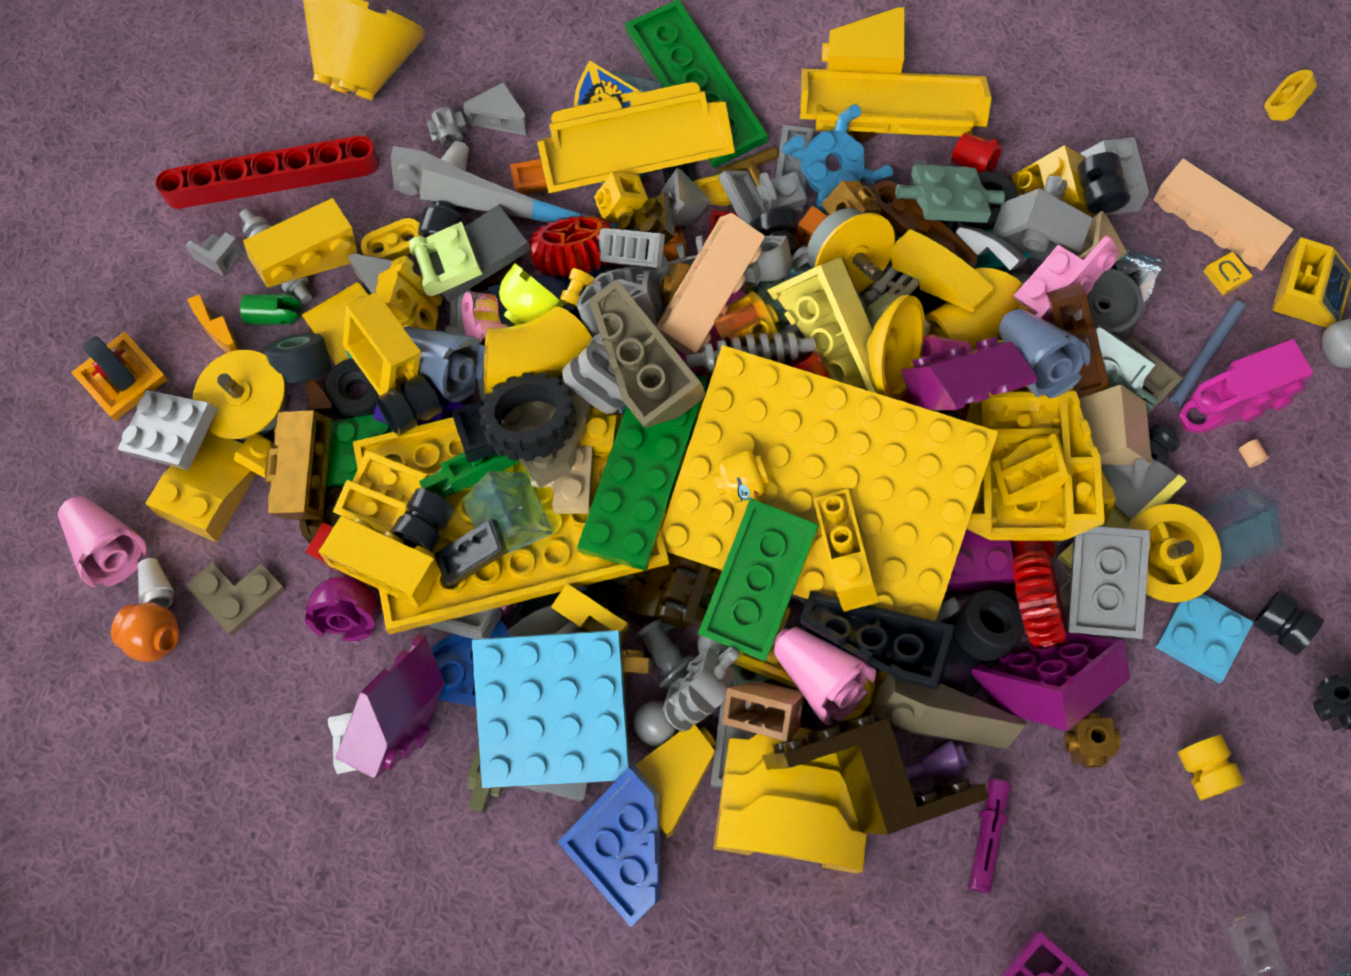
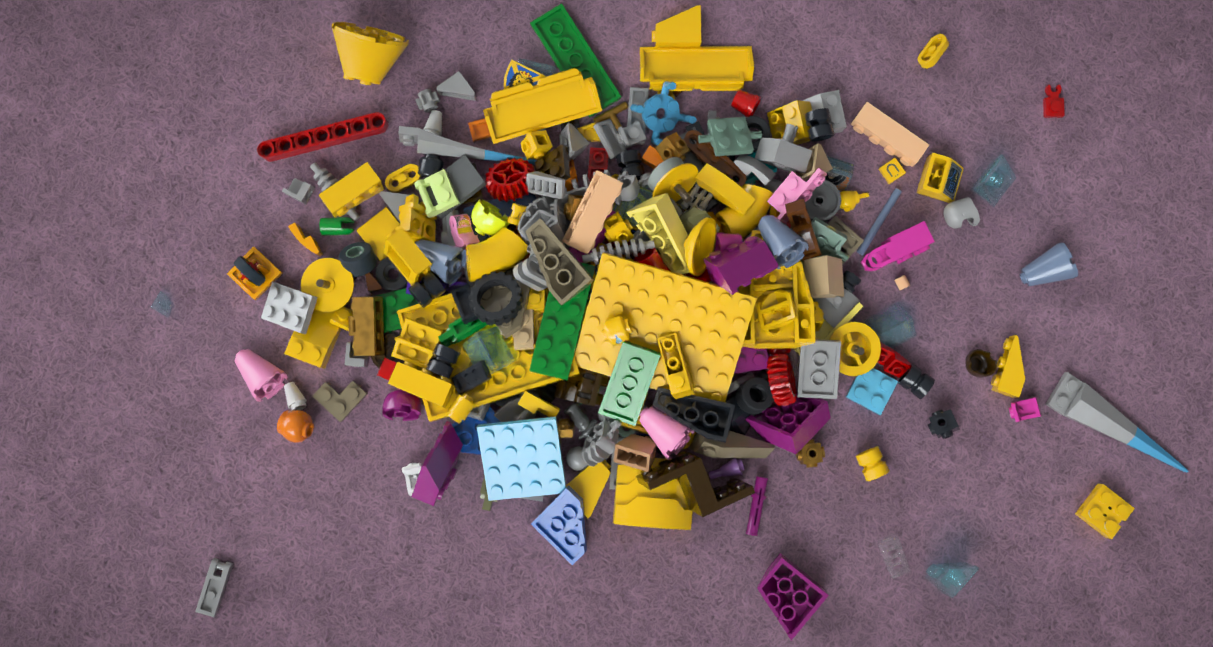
camera: 10 degrees left, 15 degrees up
(270, 527) = (355, 361): none -> light grey panel
(446, 604) = (461, 408): none -> yellow brick
(736, 321) = (609, 235): clear orange pin -> none
(1158, 313) = (850, 199): none -> yellow piece
(1243, 586) = (893, 361): none -> red slope

